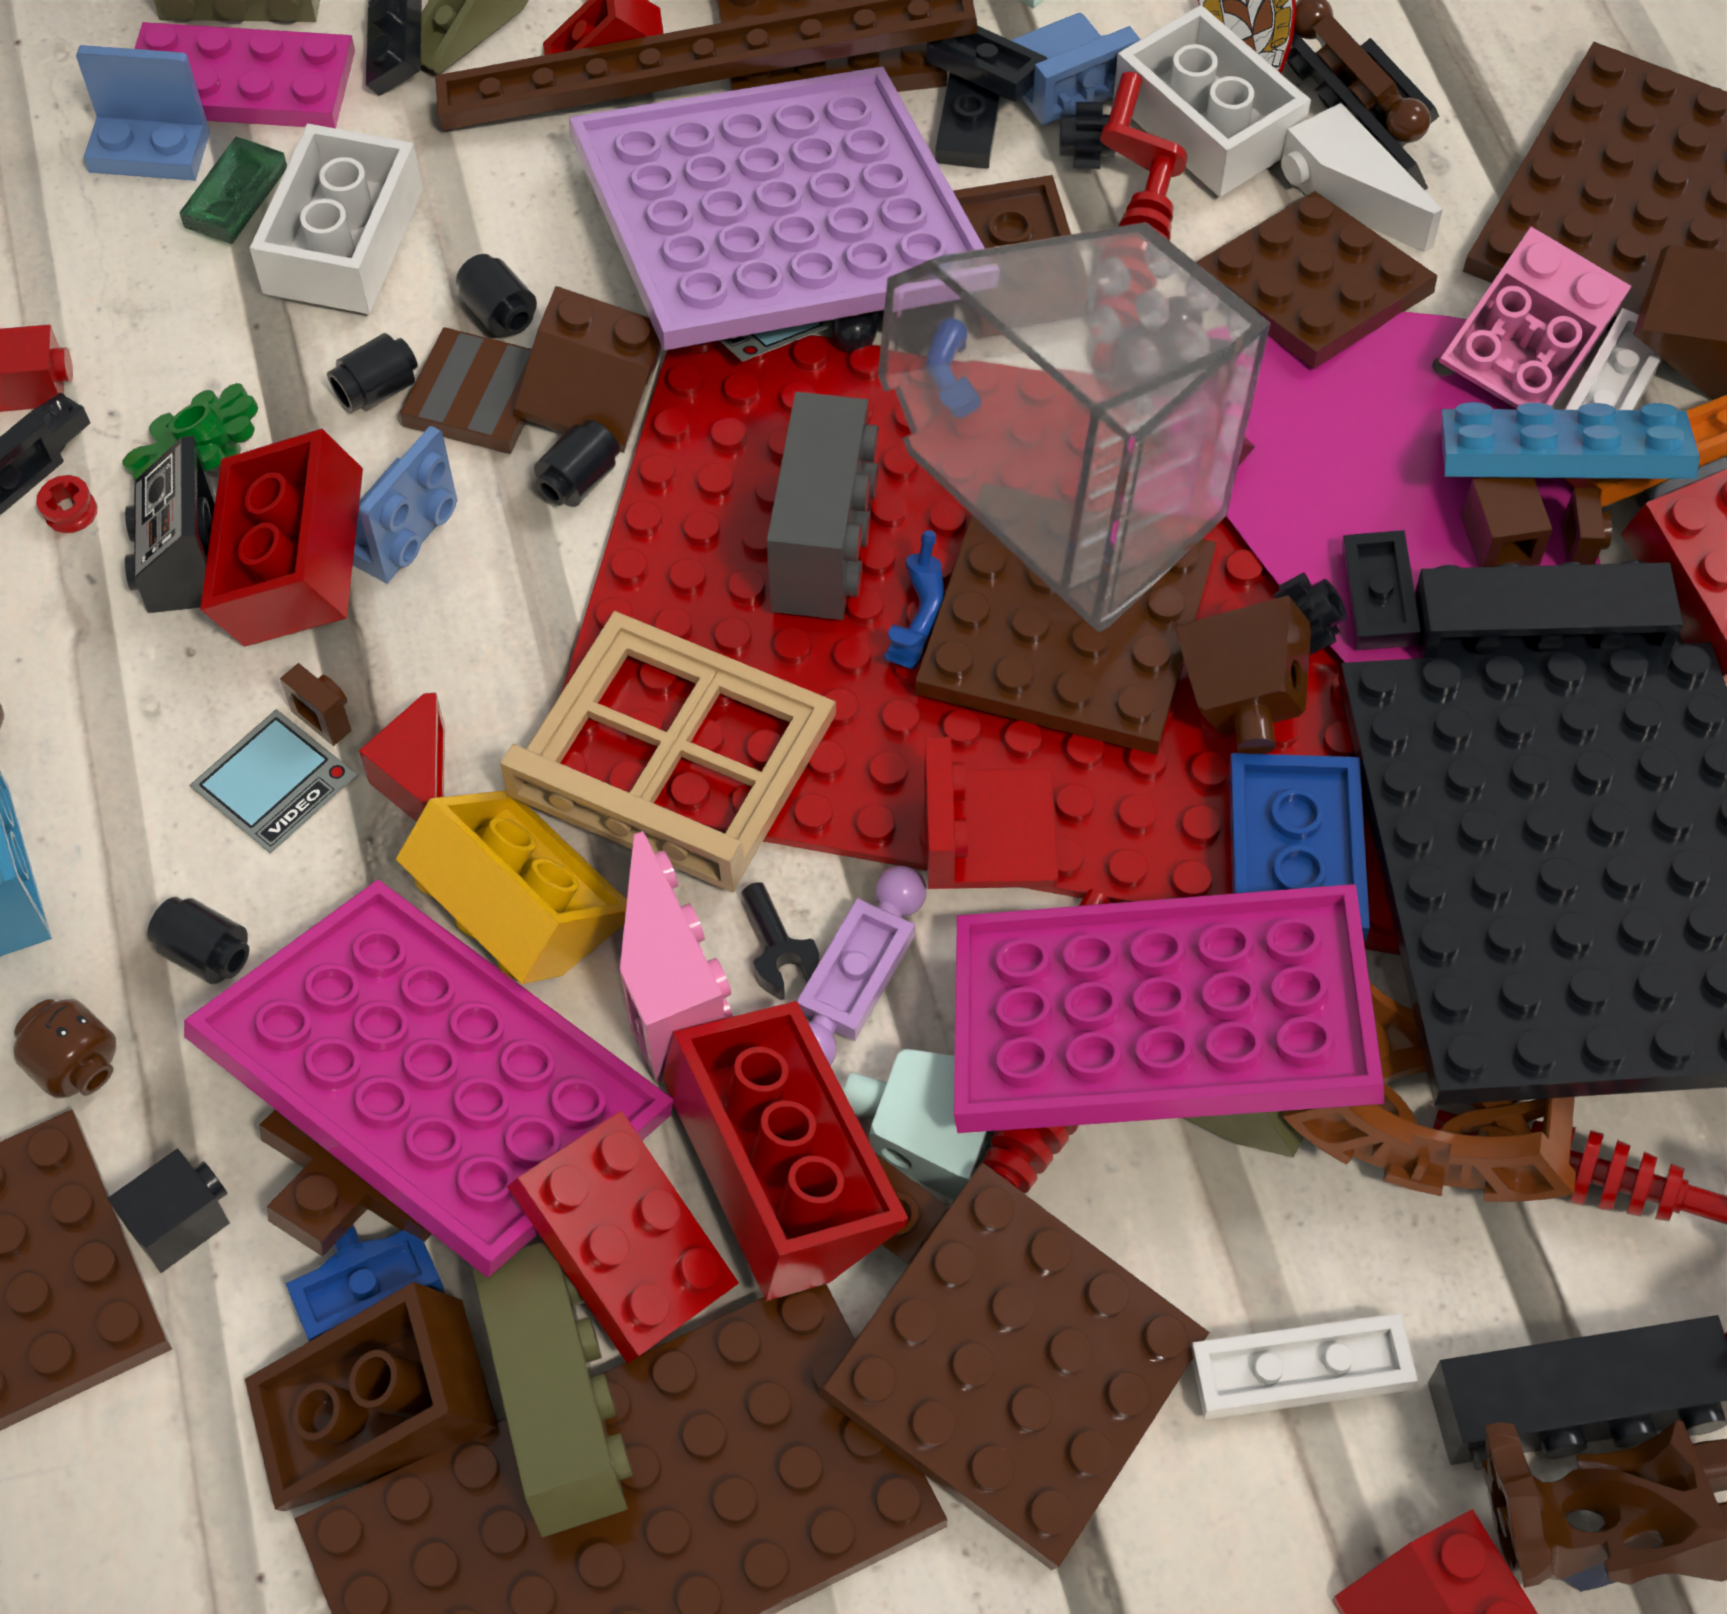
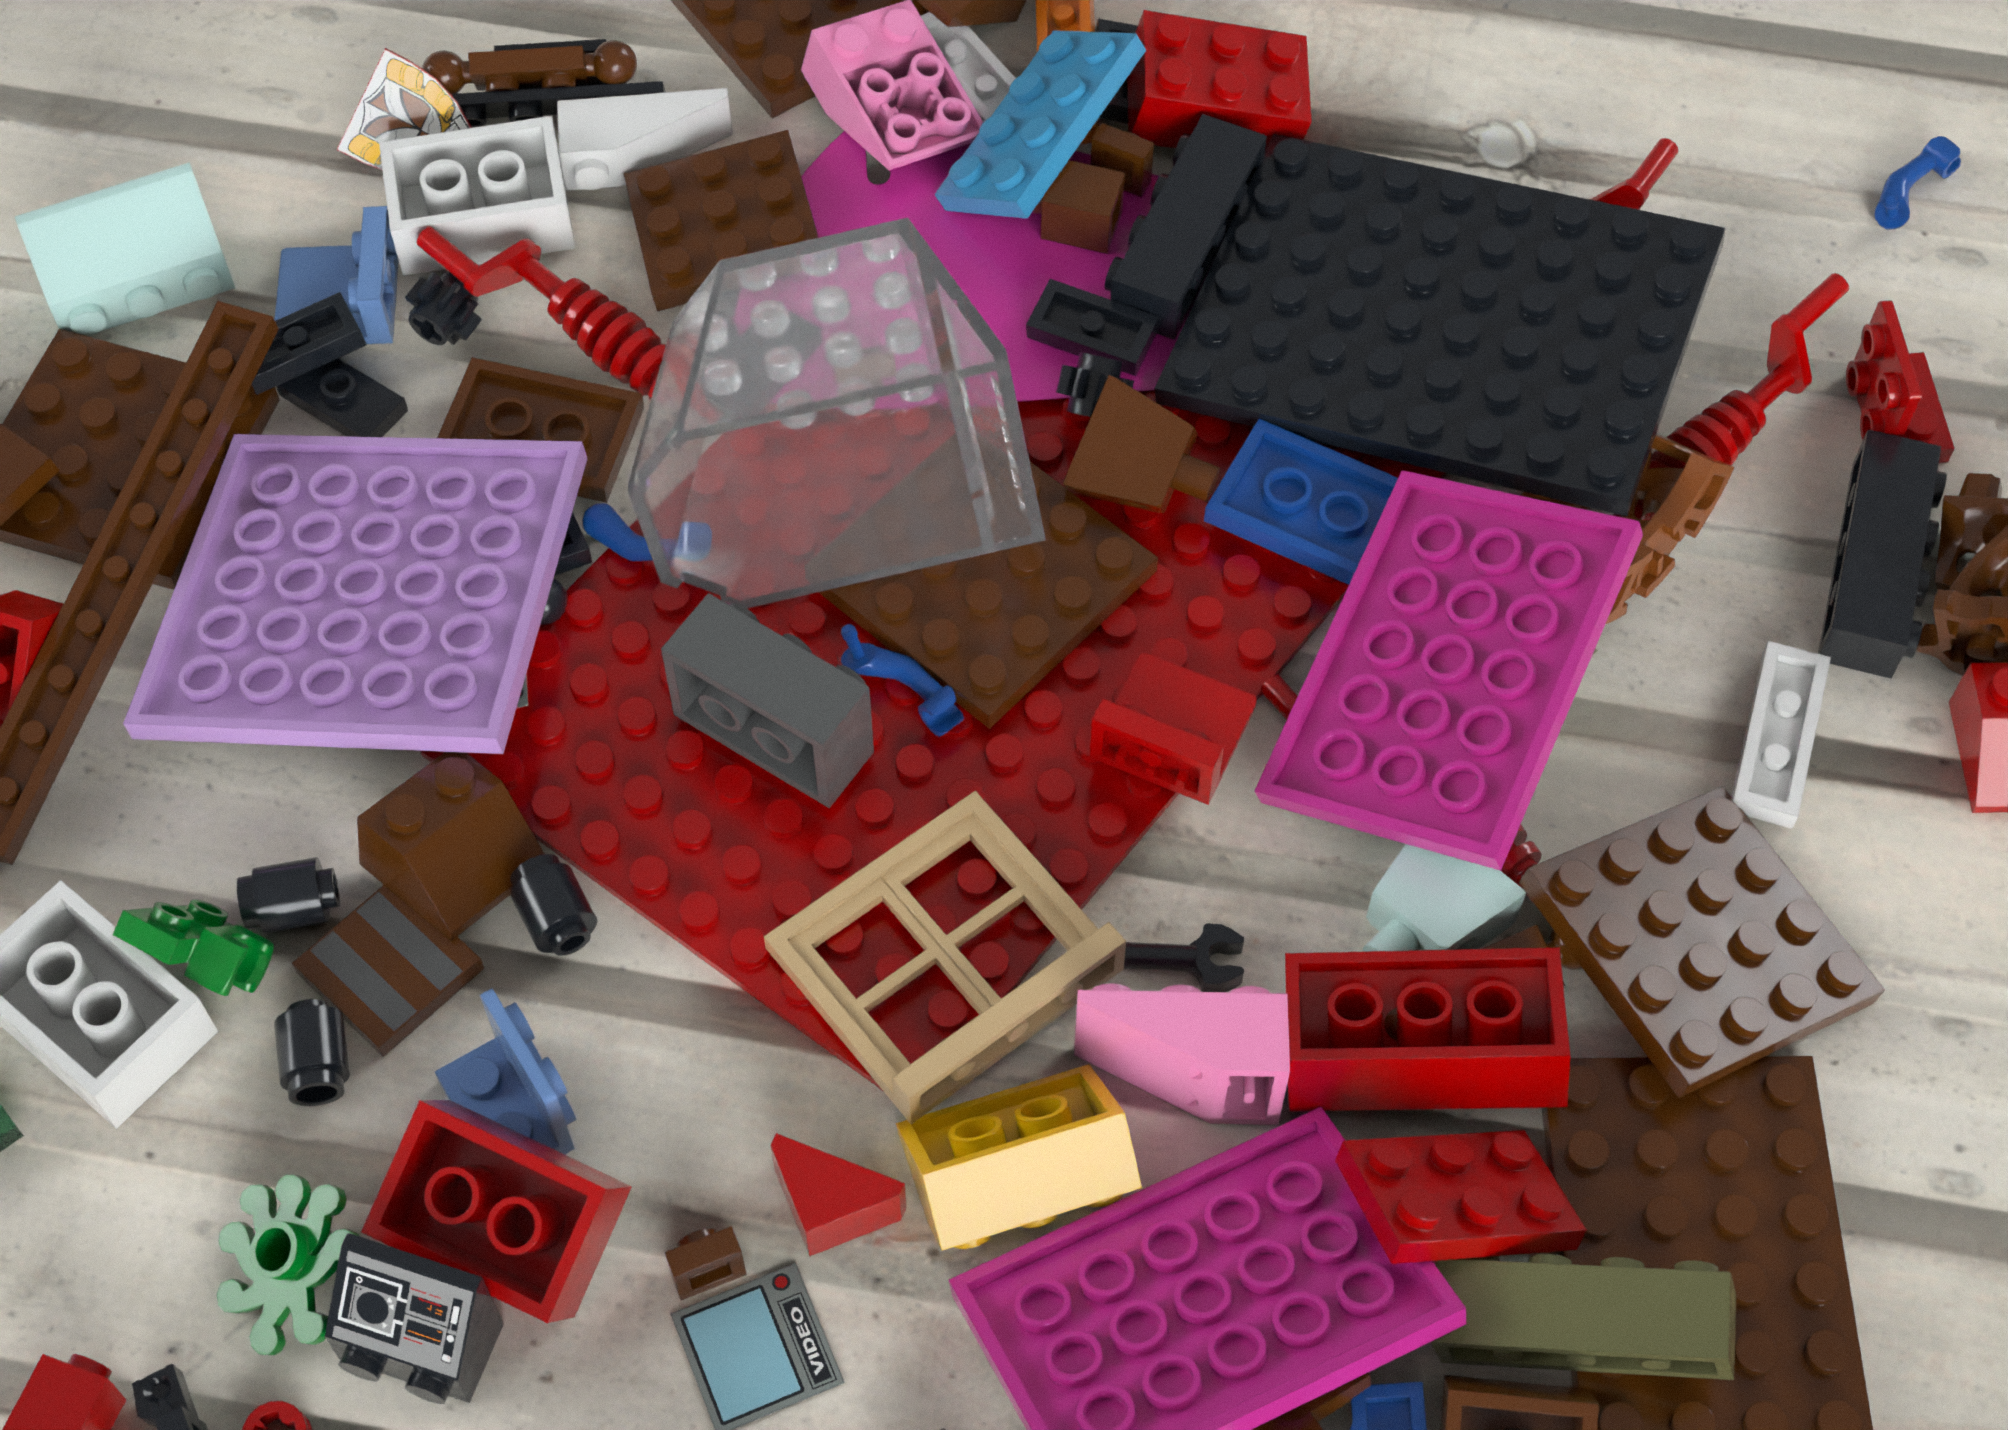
camera: 65 degrees left, 0 degrees up
(419, 252) = (200, 936): none -> green plate
(862, 959) = (1244, 889): lavender plate -> none

